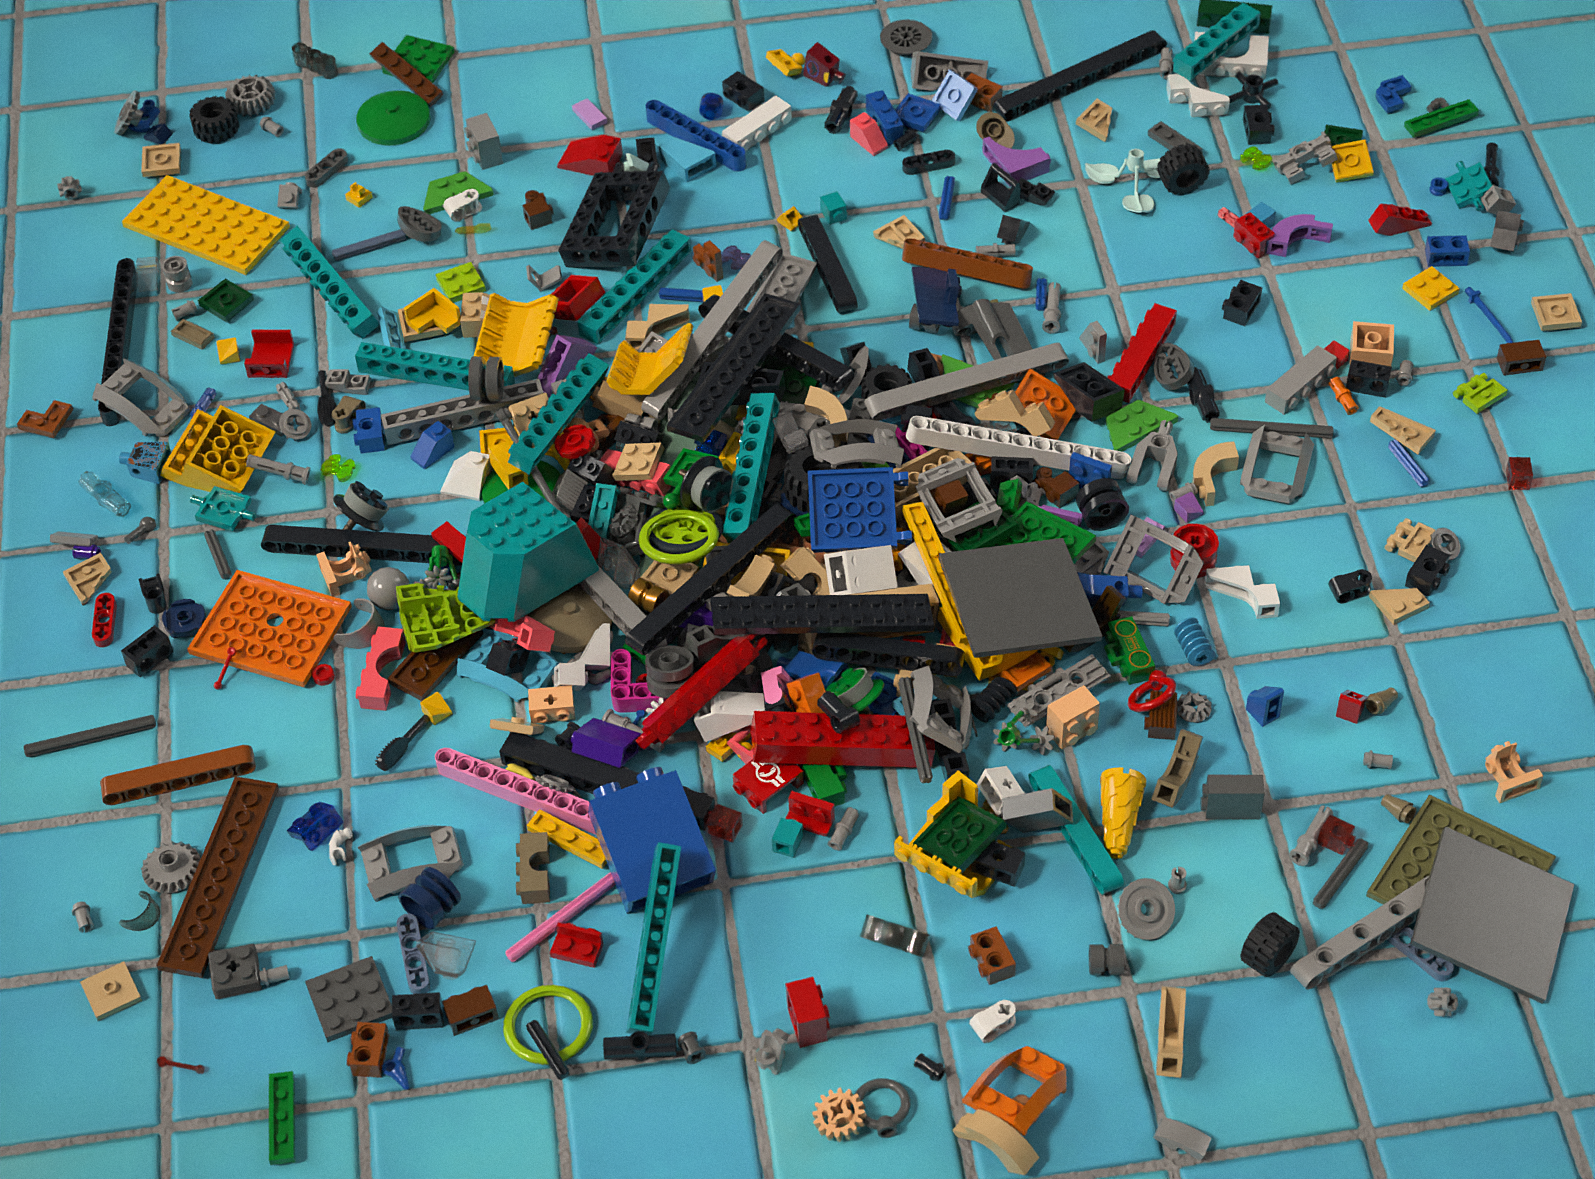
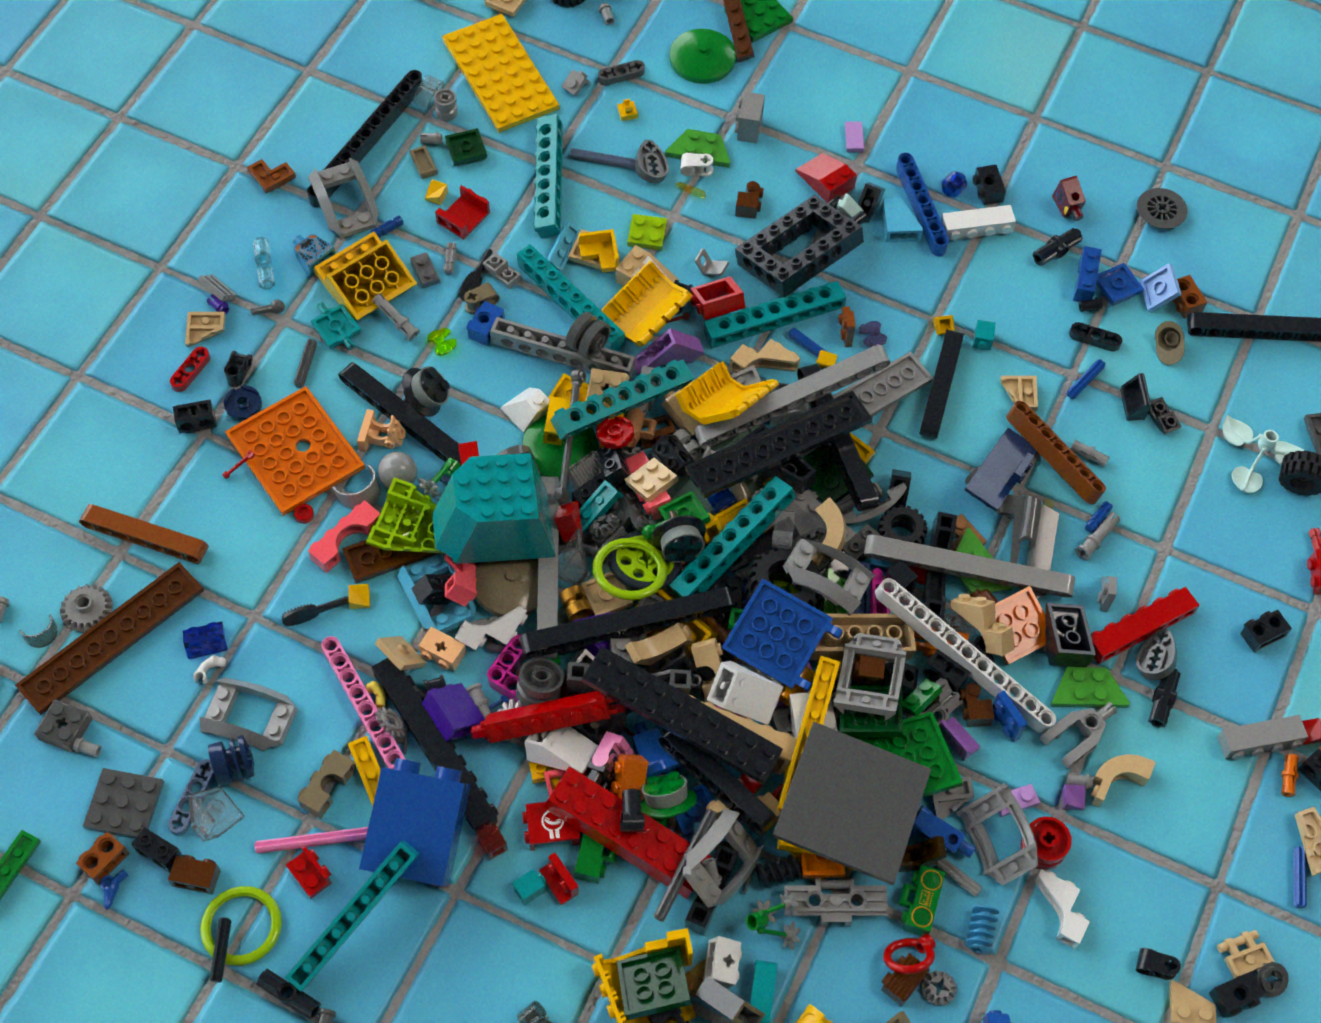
camera: 30 degrees right, 10 degrees up
(89, 735) = (111, 460): dark grey axle -> none
(300, 418) = (444, 283): light grey gear -> none
(432, 445) = (521, 364): blue slope -> none
(788, 65) = (1043, 177): yellow plate -> none
(843, 829) = (578, 908): light grey axle -> none
(867, 134) = (1062, 282): coral slope -> none
(930, 69) = (1160, 250): light grey wedge -> none
(1012, 229) = (1118, 441): black slope -> none
(1015, 162) = (1167, 382): medium lavender arch -> none
(1073, 717) = (826, 934): light nougat brick -> none
(1096, 119) = (1268, 378): tan wing -> none
(1102, 504) = (998, 751): black wheel -> none
(1279, 443) = (1199, 786): light grey wedge -> none
(1281, 428) = (1203, 766): dark grey axle -> none

